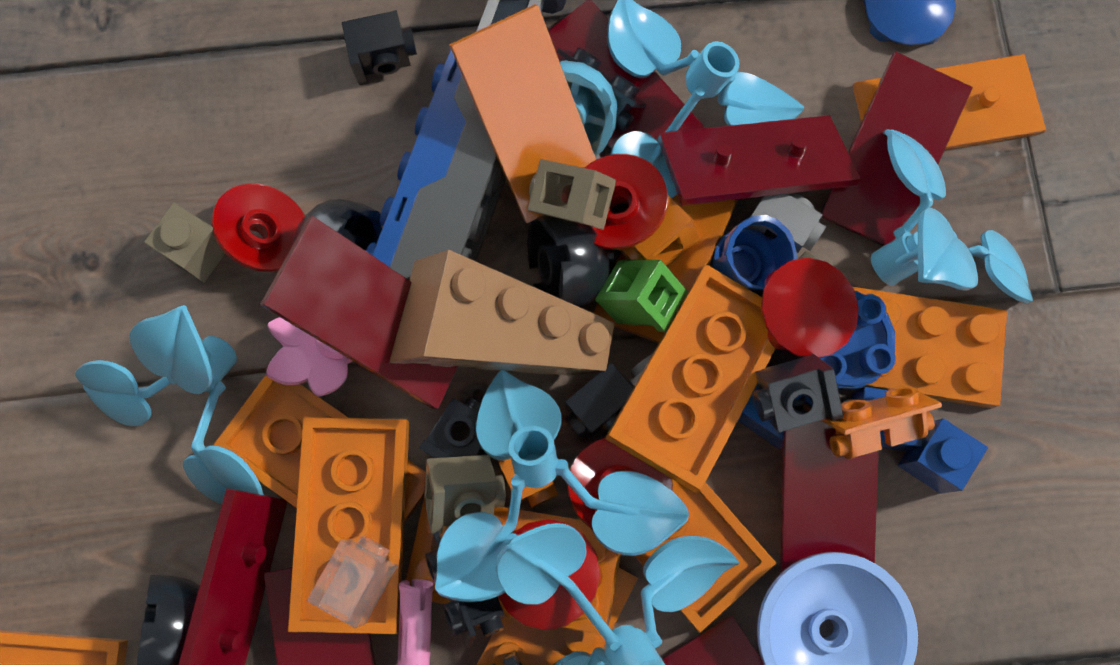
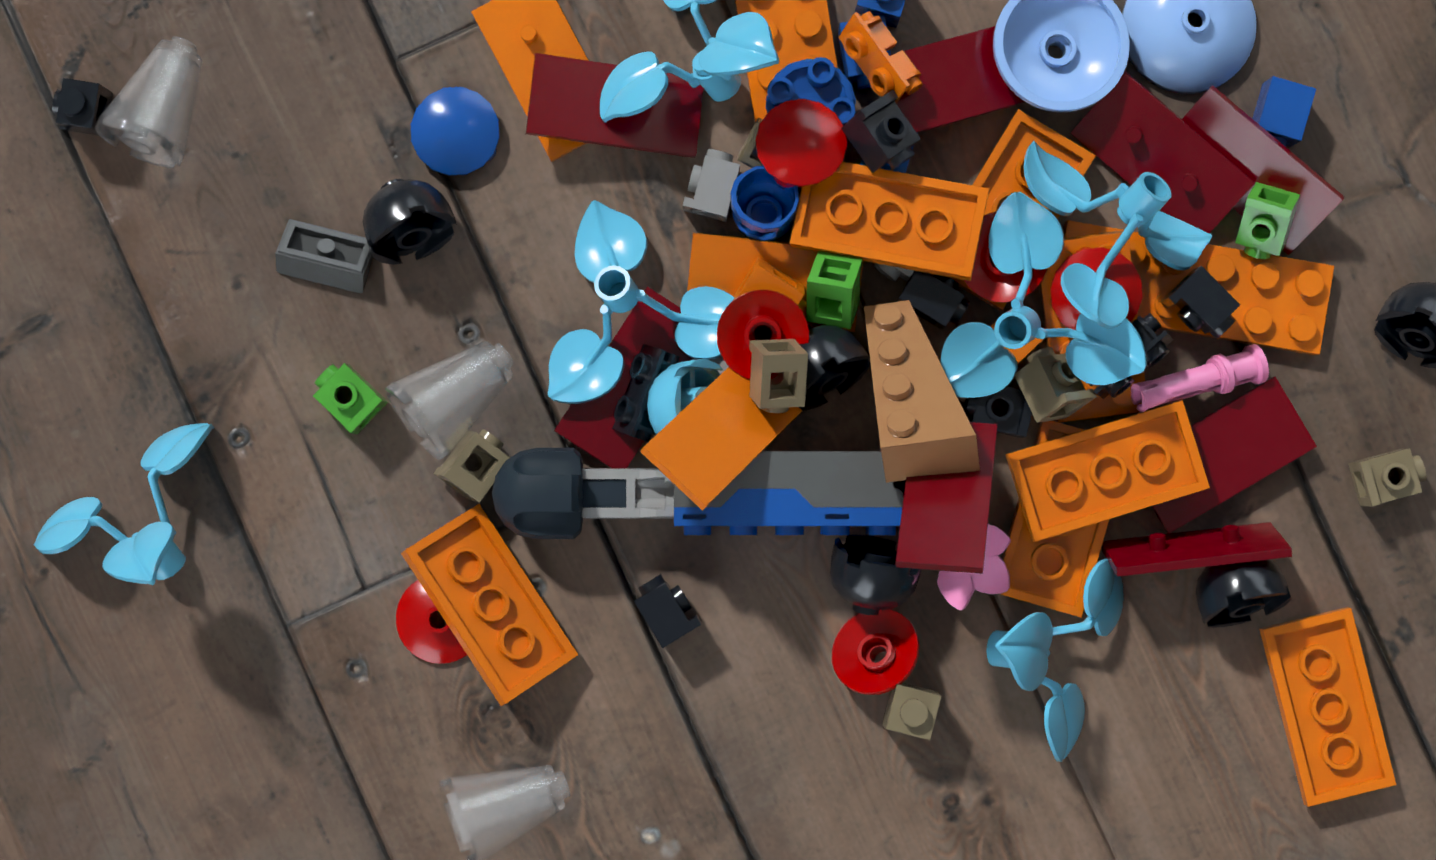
camera: 110 degrees left, 10 degrees up
(353, 581) = (1154, 444): clear brick -> none
(757, 159) = (671, 226): dark red piece -> none

